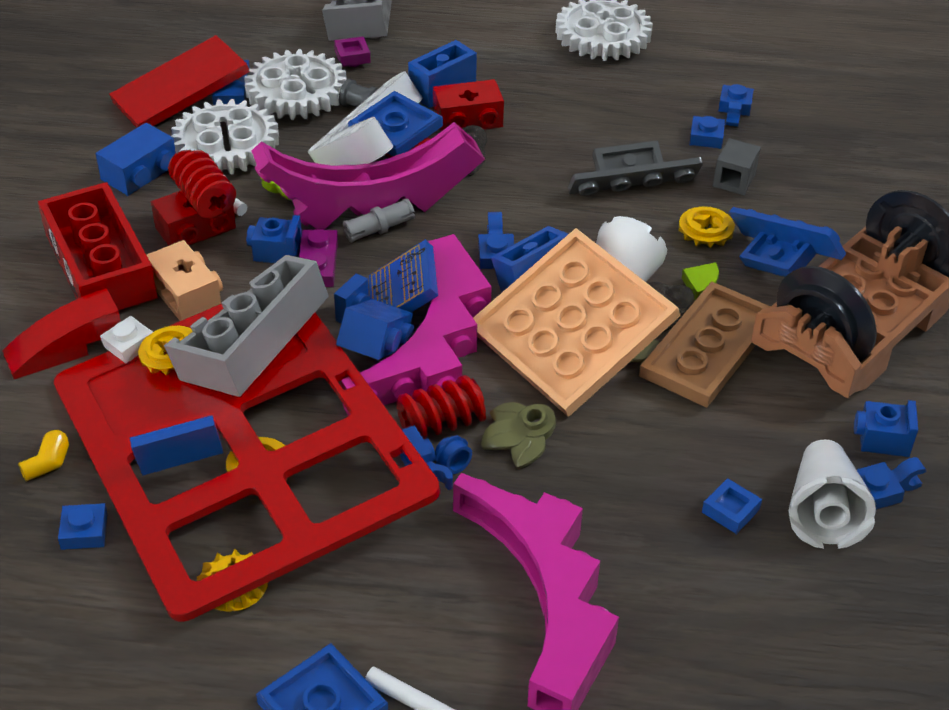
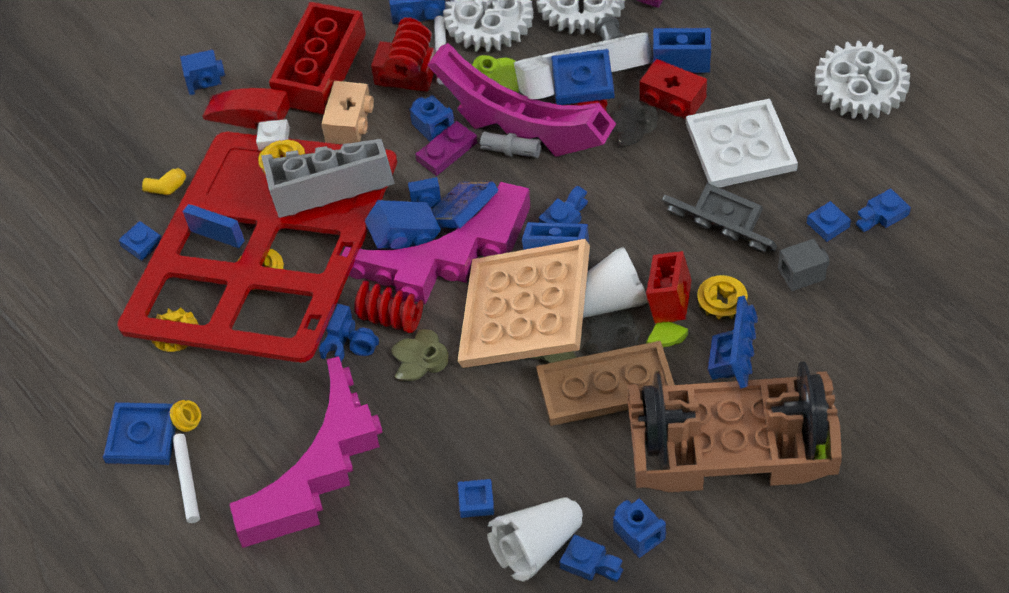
camera: 50 degrees right, 10 degrees up
(357, 645) = (185, 415): none -> yellow plate
(571, 115) = (741, 143): none -> white plate
(682, 232) = (669, 287): none -> red brick

